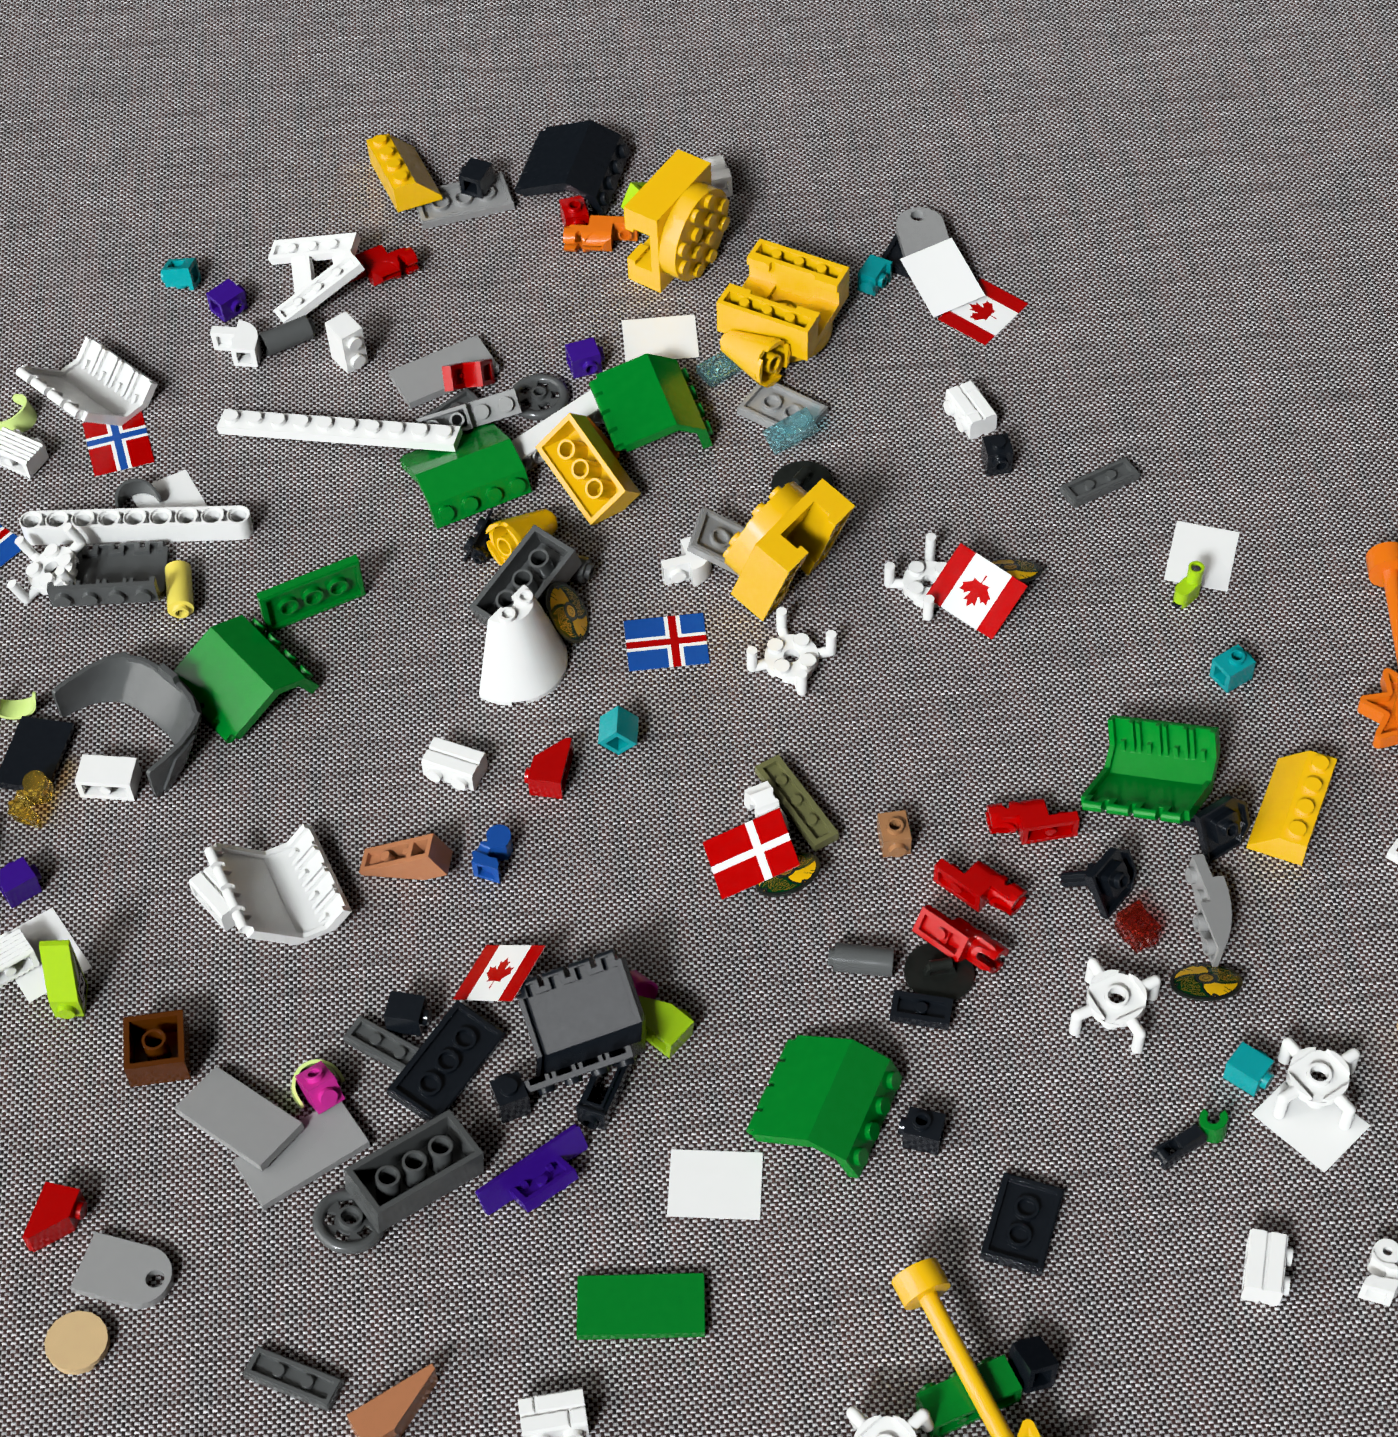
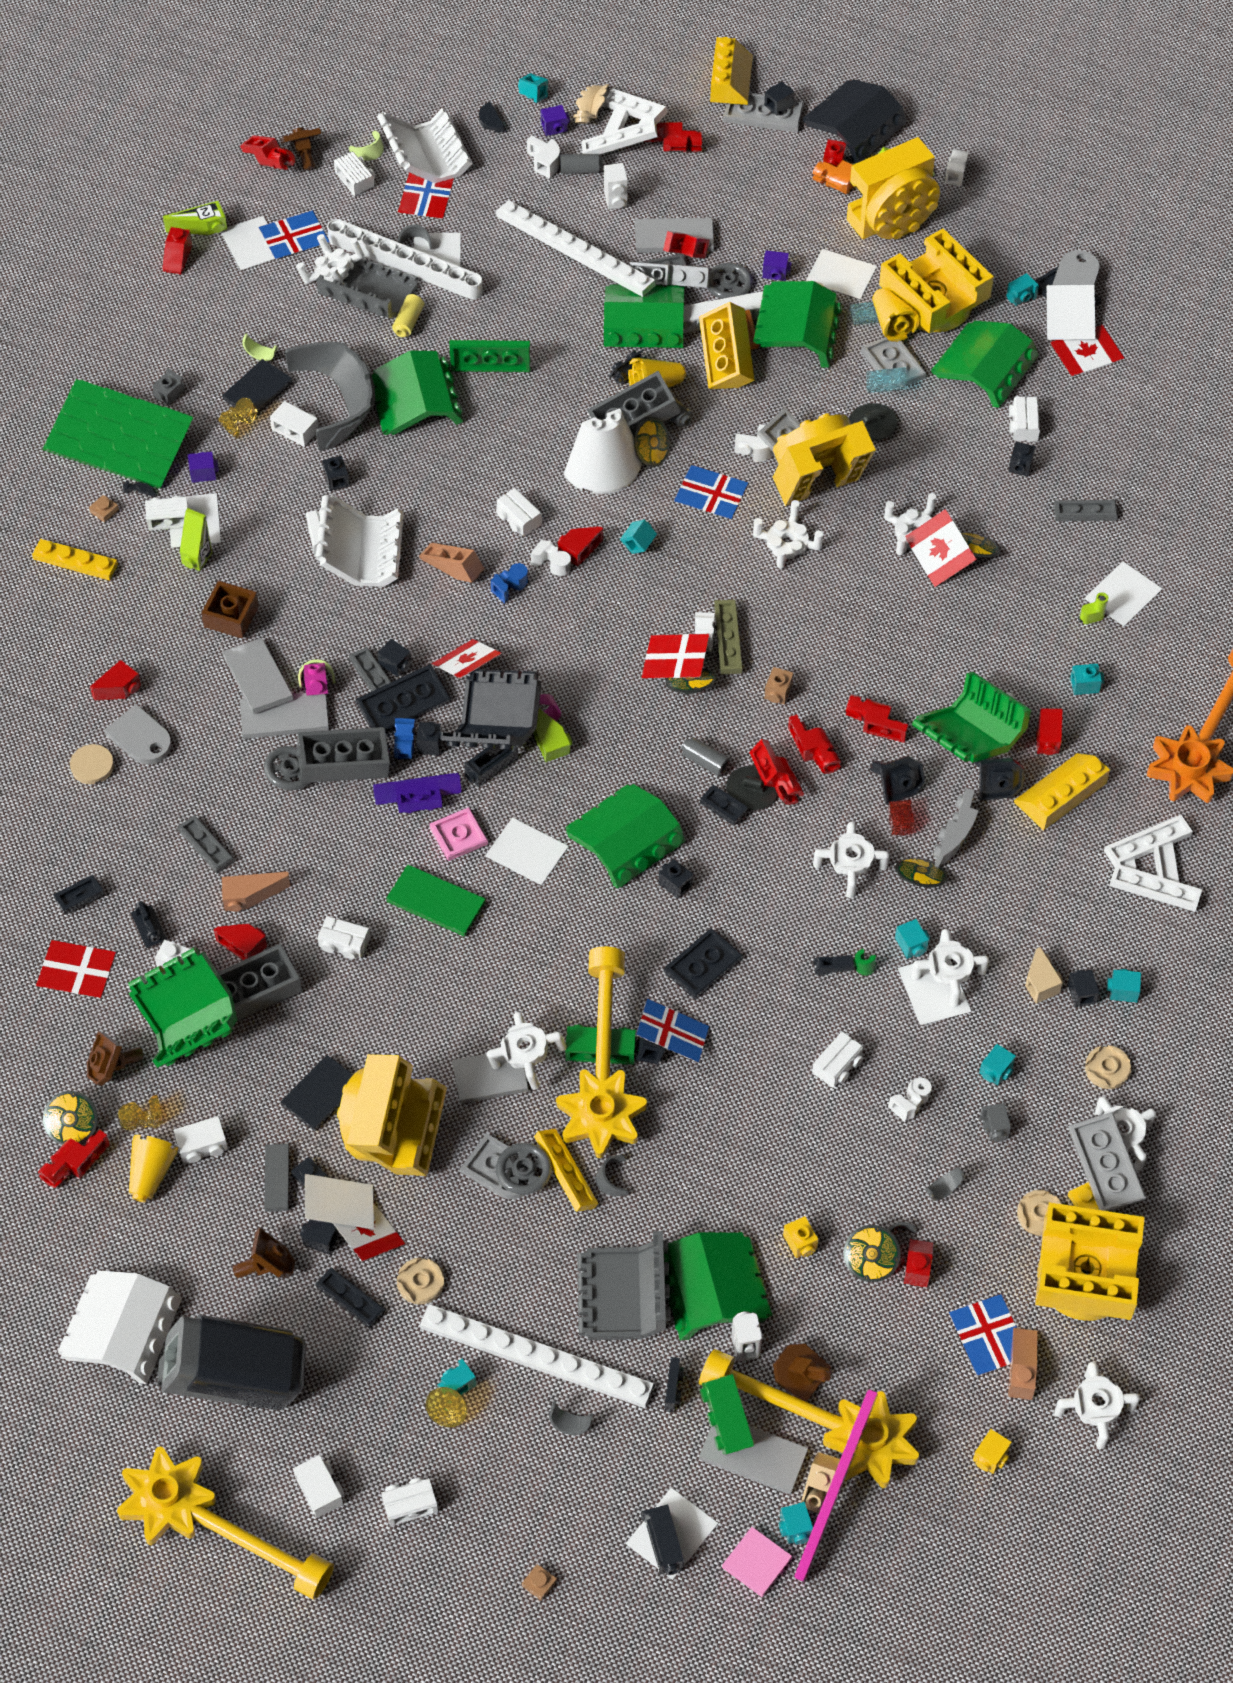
camera: 25 degrees right, 5 degrees up
(147, 328) = (489, 118): none -> black tile
(196, 815) = (335, 473): none -> black brick
(259, 265) = (590, 103): none -> tan plant
(477, 1111) = (404, 738): none -> blue leg
(539, 801) = (559, 560): none -> white leg
(617, 1203) = (458, 834): none -> bright pink tile
(885, 357) = (989, 355): none -> green hinge
(1048, 1331) = (672, 1030): none -> sticker
(1238, 746) = (1049, 731): none -> red slope

